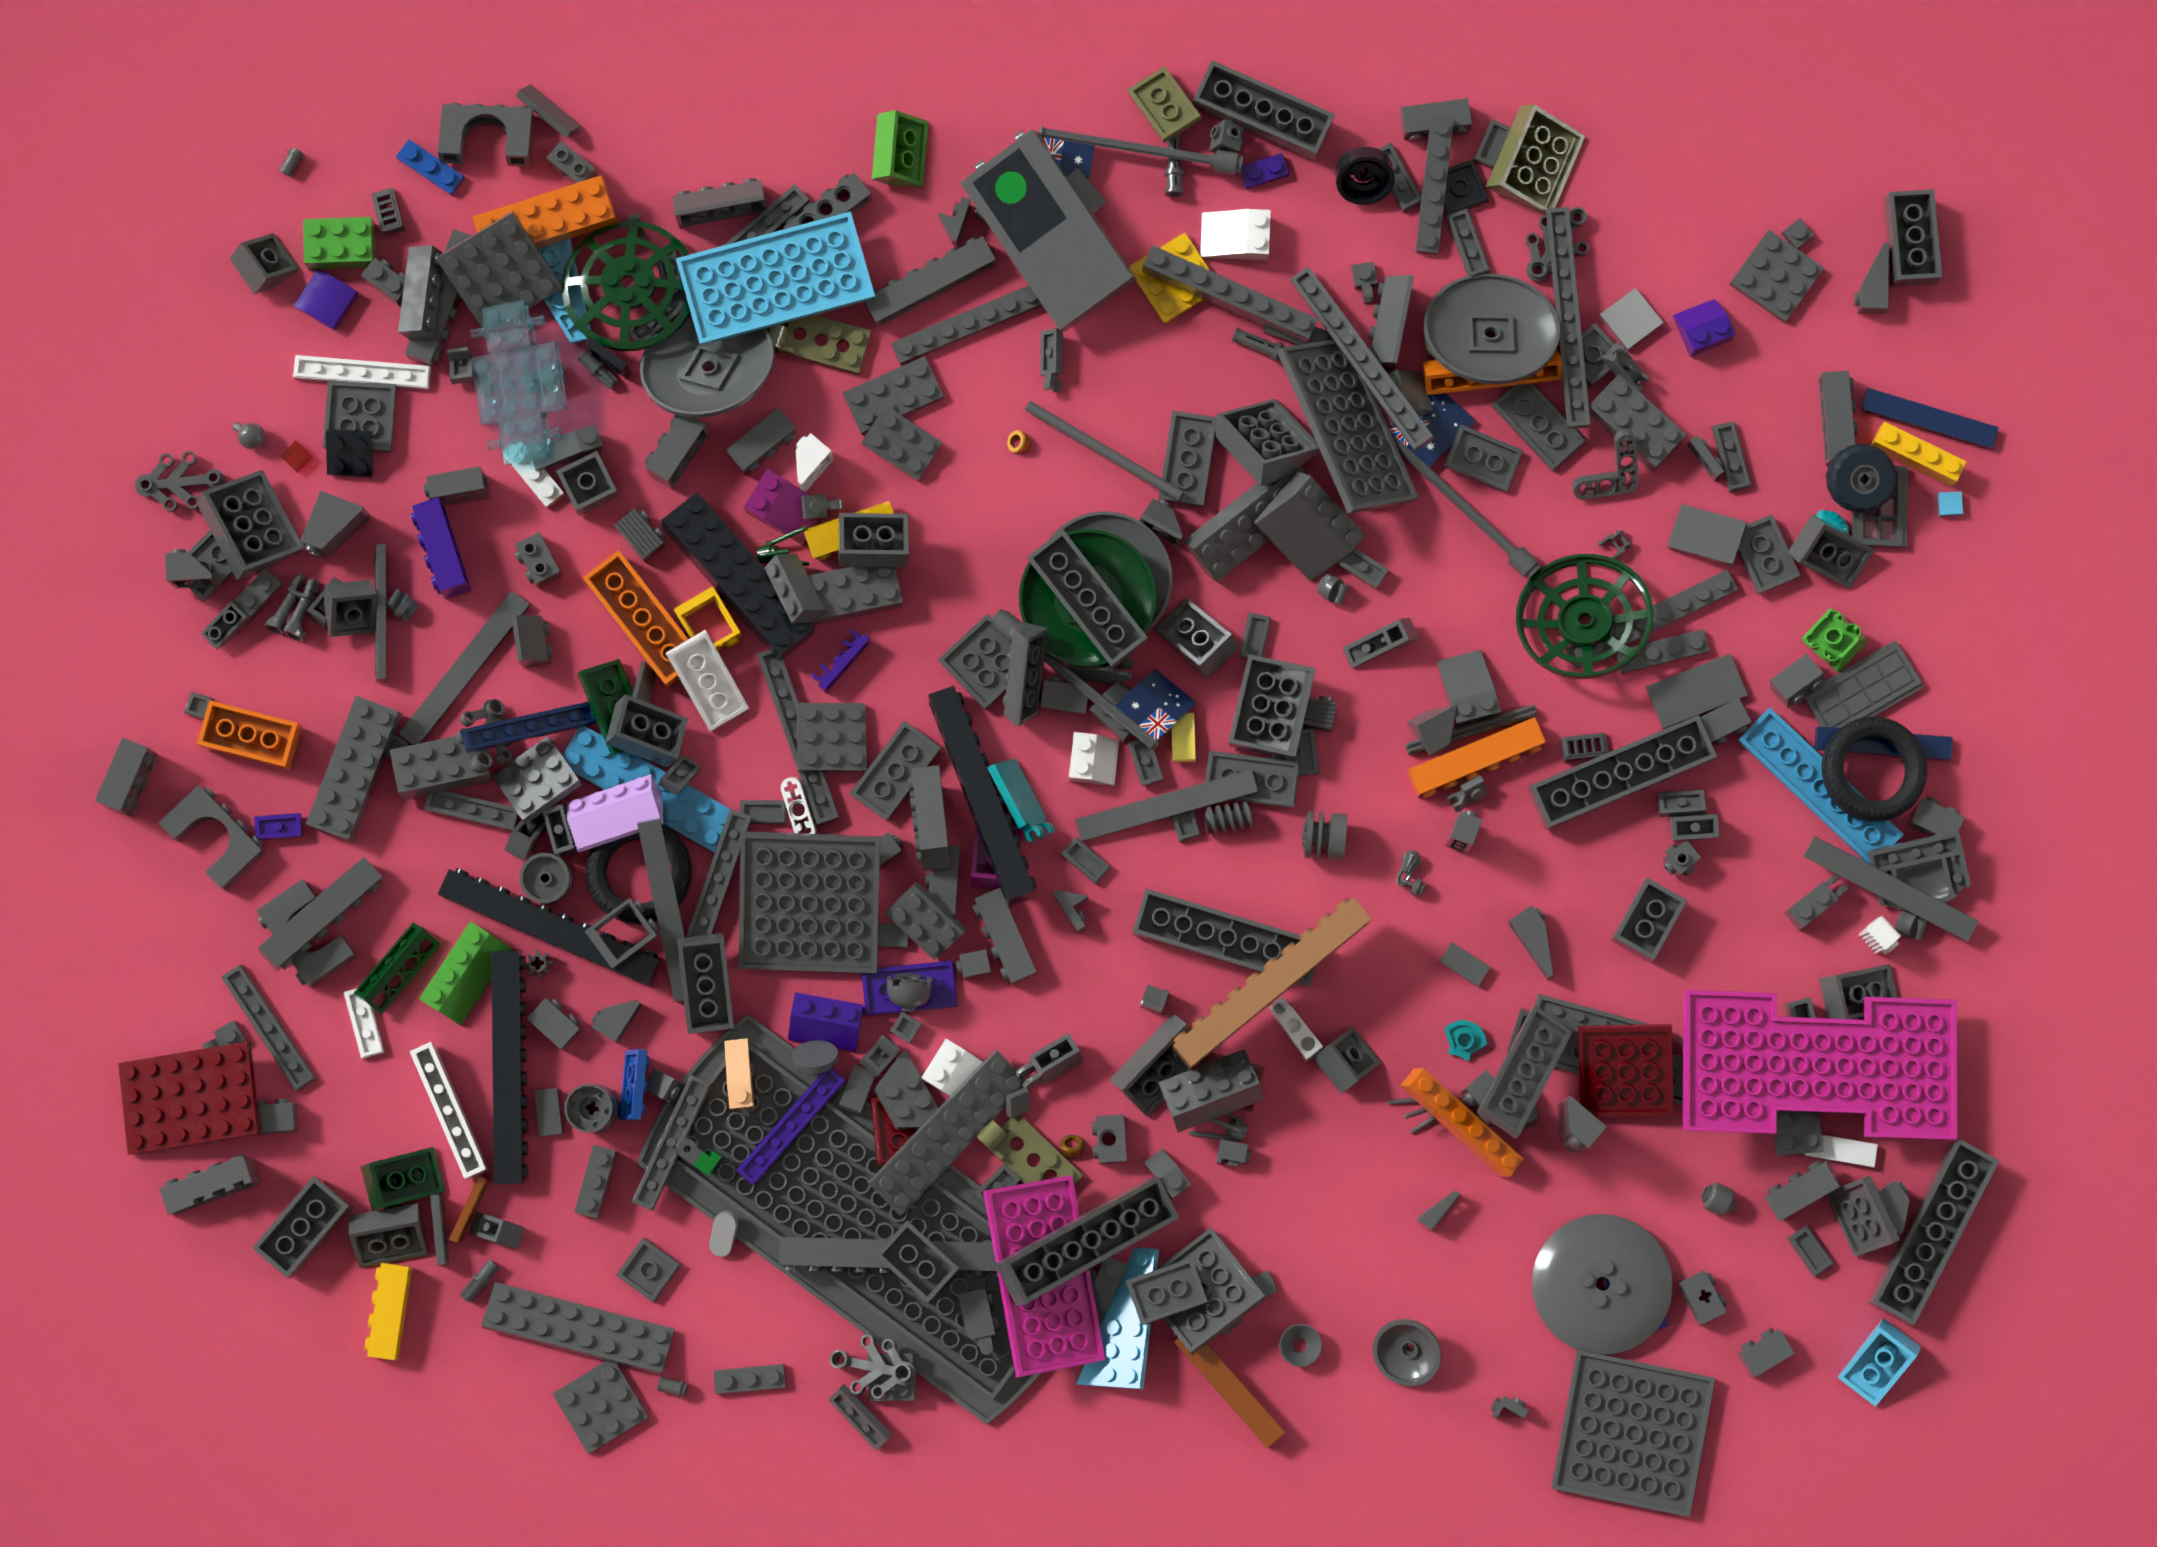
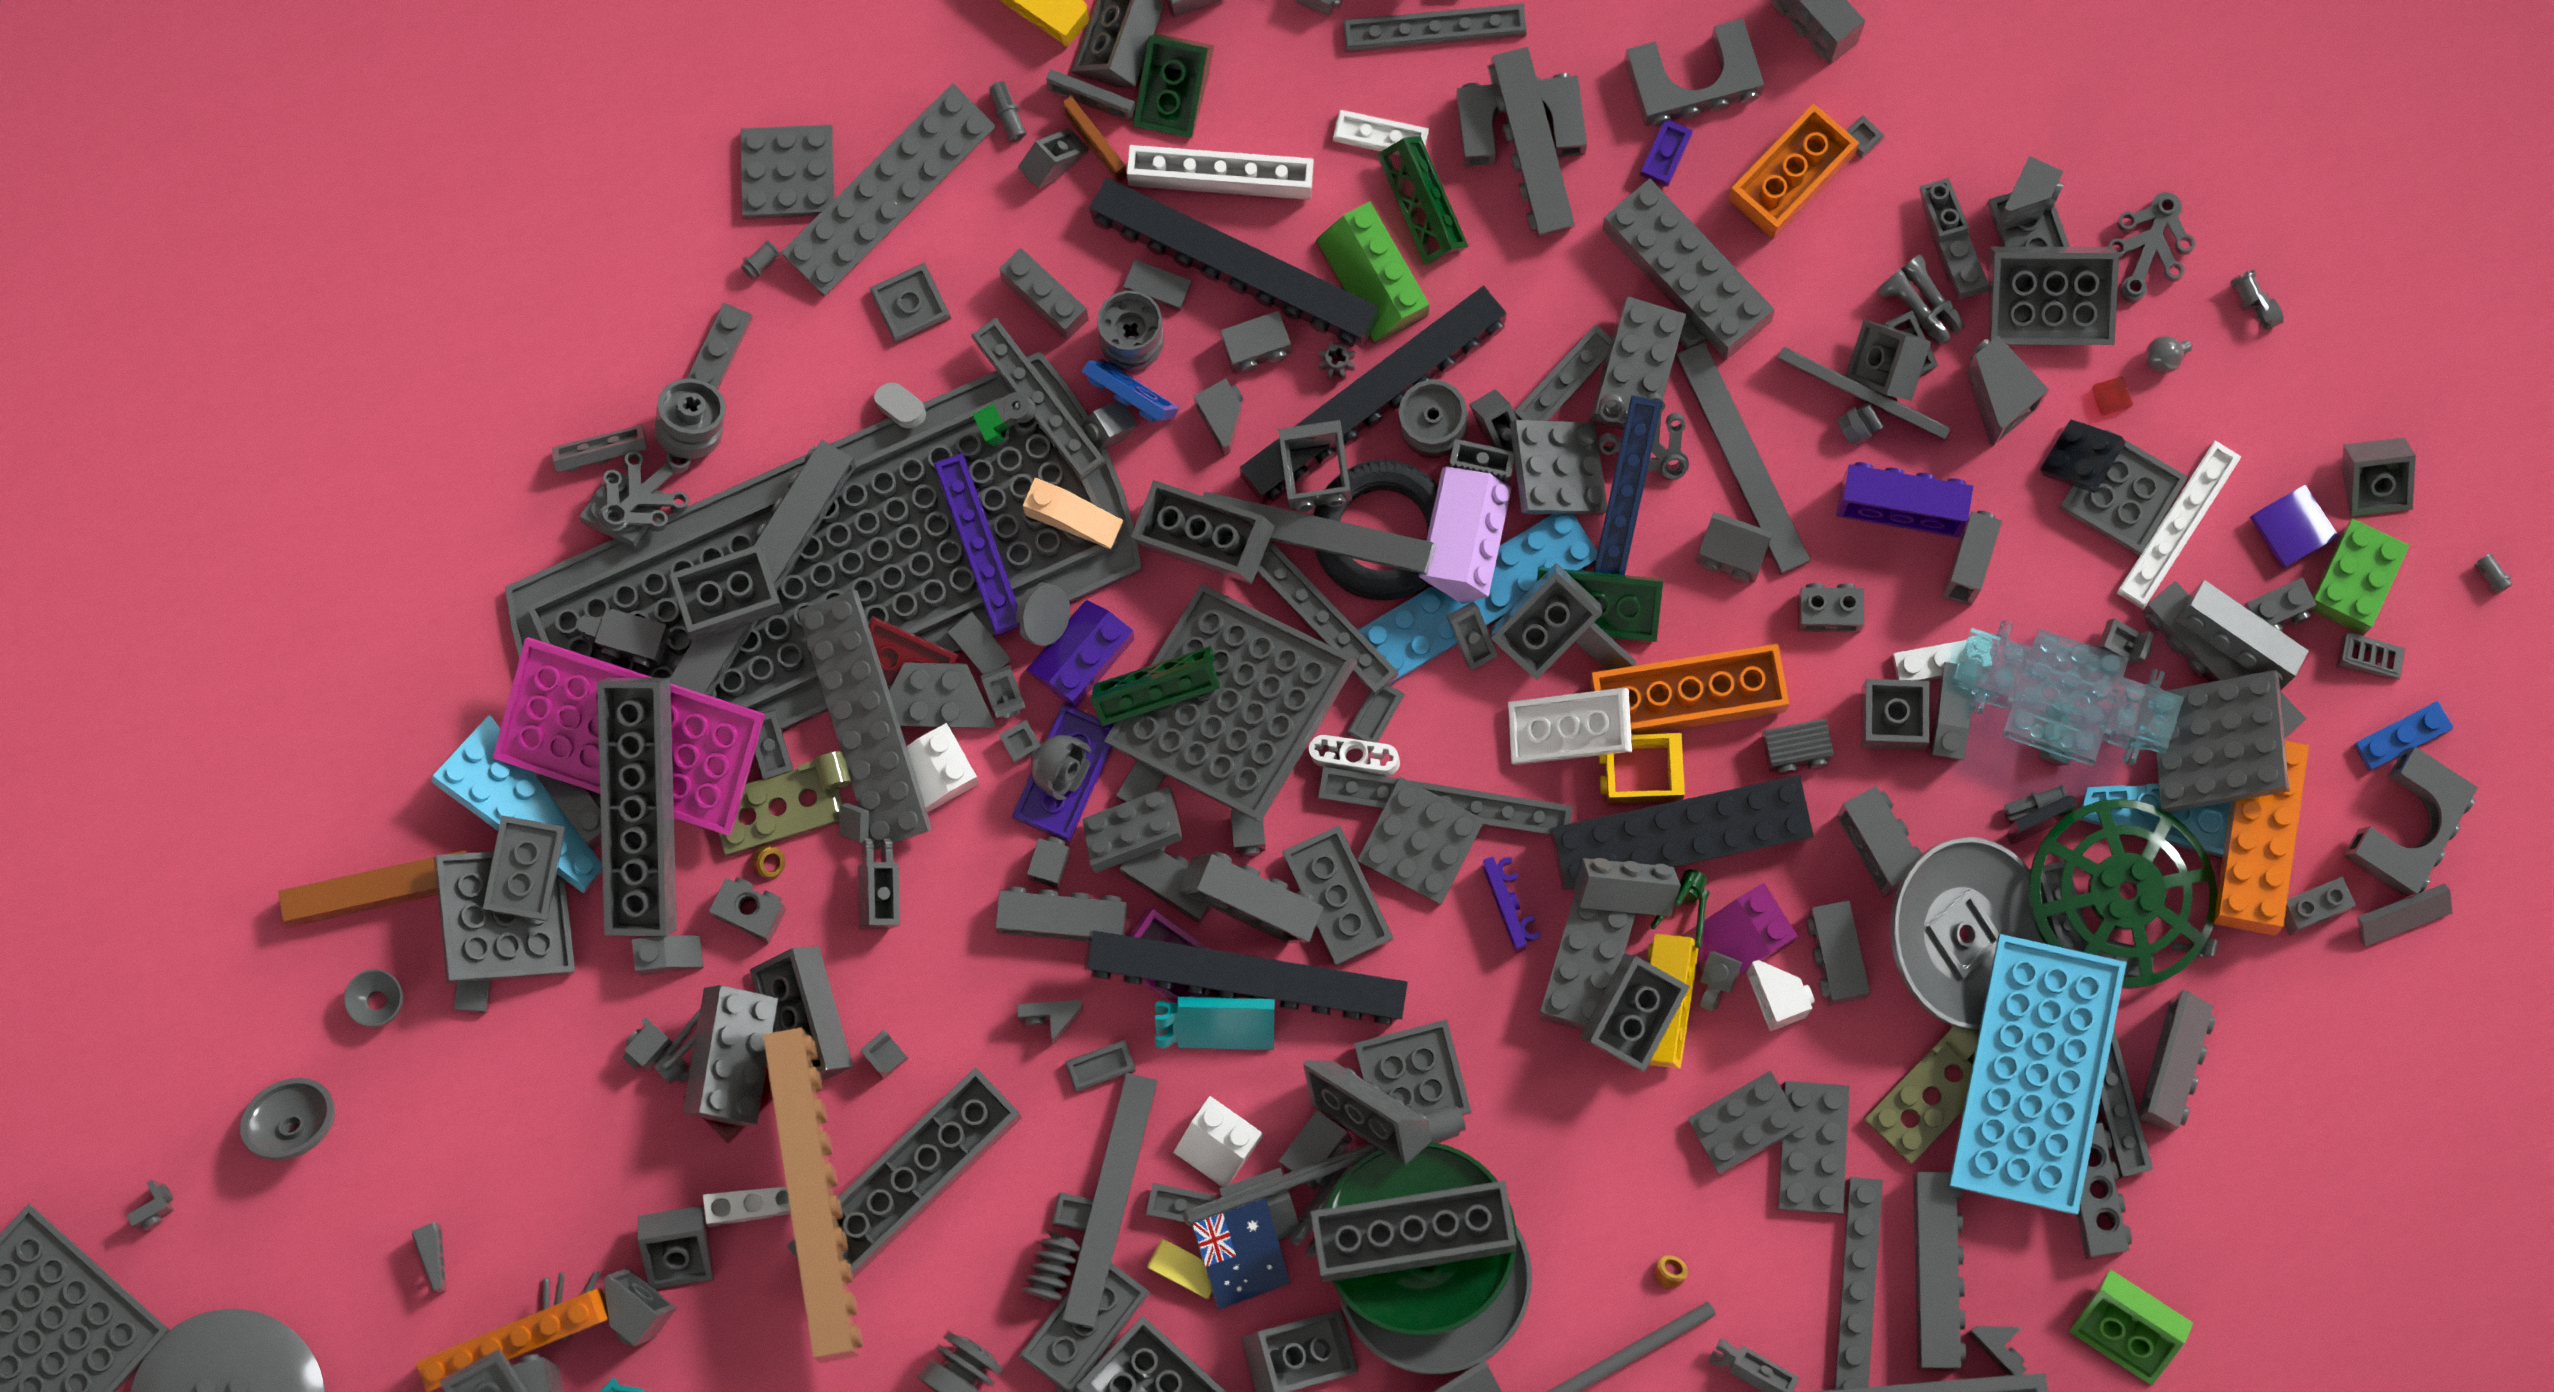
camera: 120 degrees right, 5 degrees down
(183, 390) = (2253, 297): none -> dark grey connector
(809, 1365) = (689, 418): none -> dark grey wheel
(826, 955) = (1155, 686): none -> dark green fence
(1399, 1058) = (635, 1307): none -> dark grey slope

